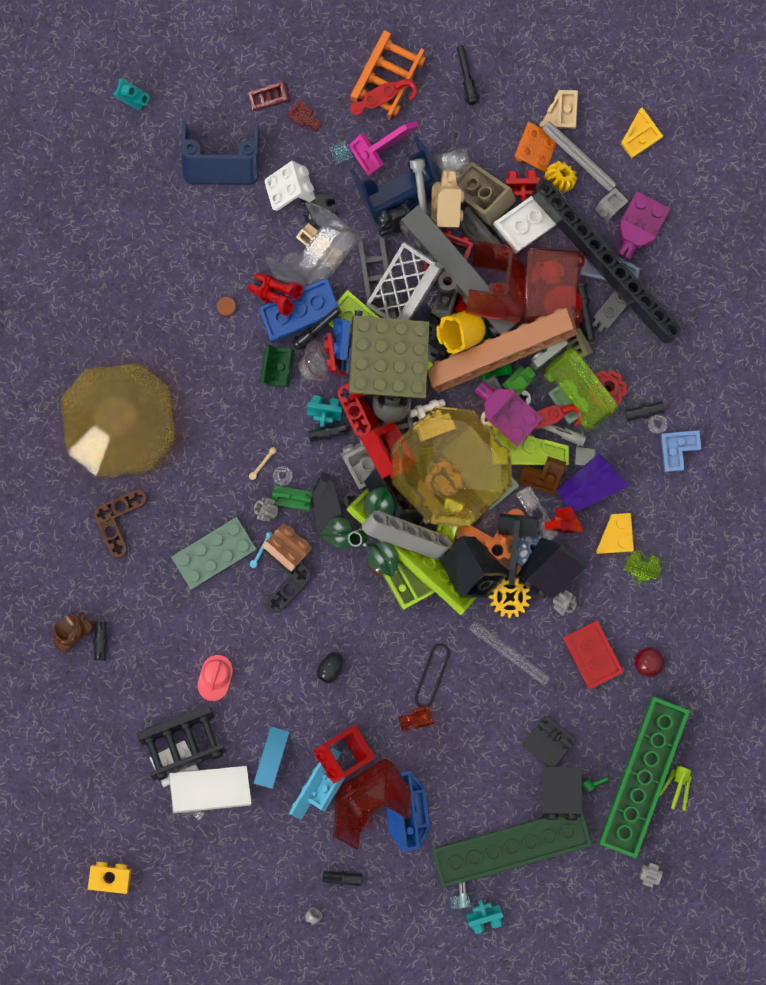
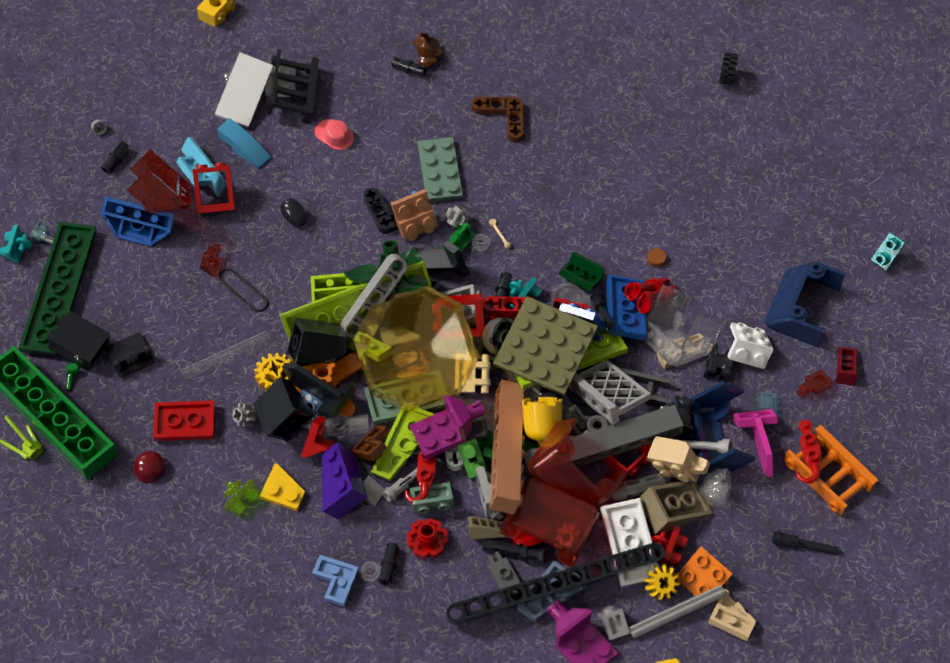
camera: 115 degrees right, 25 degrees down
(118, 420) = (589, 140): clear yellow windscreen -> none
(582, 388) = (435, 498): clear neon green windscreen -> none

